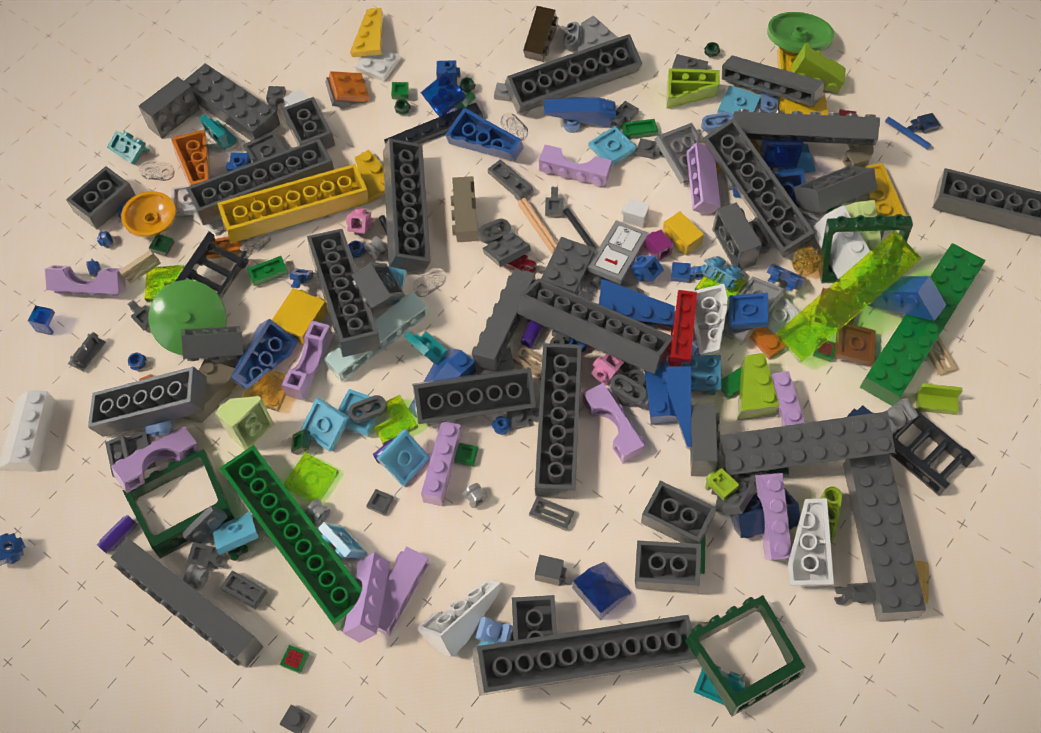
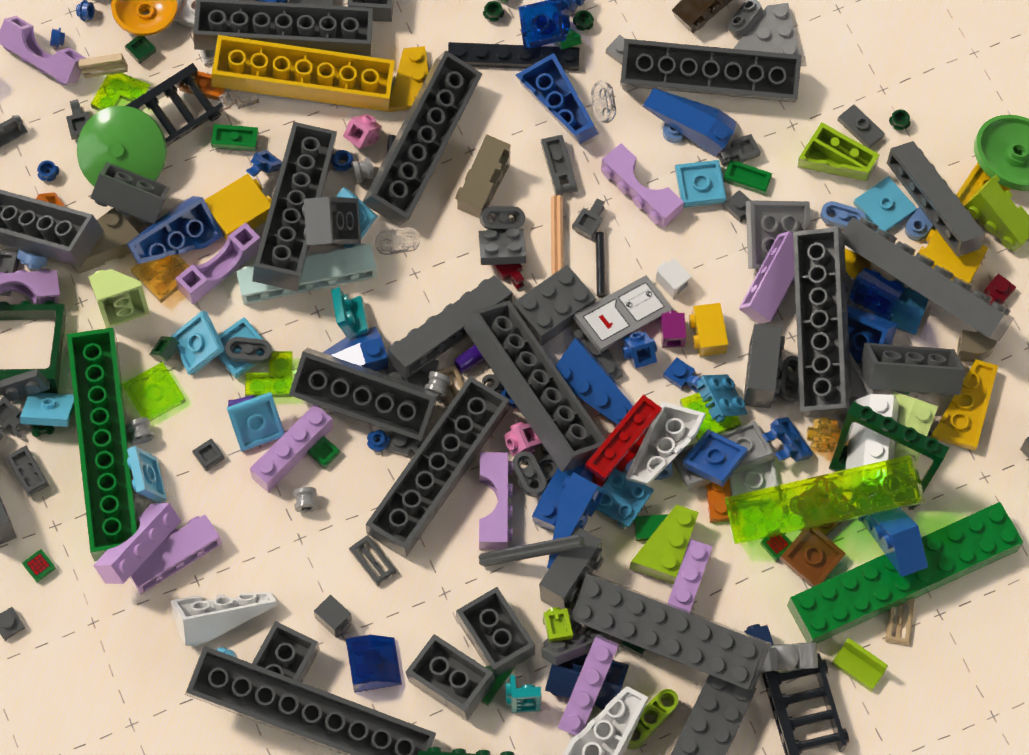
camera: 25 degrees right, 5 degrees up
(490, 629) = (240, 643): light blue bracket -> none
(521, 360) = (438, 383): none -> light grey wheel
(667, 441) = (531, 550): none -> dark grey axle
(732, 552) = (524, 698): none -> teal bracket

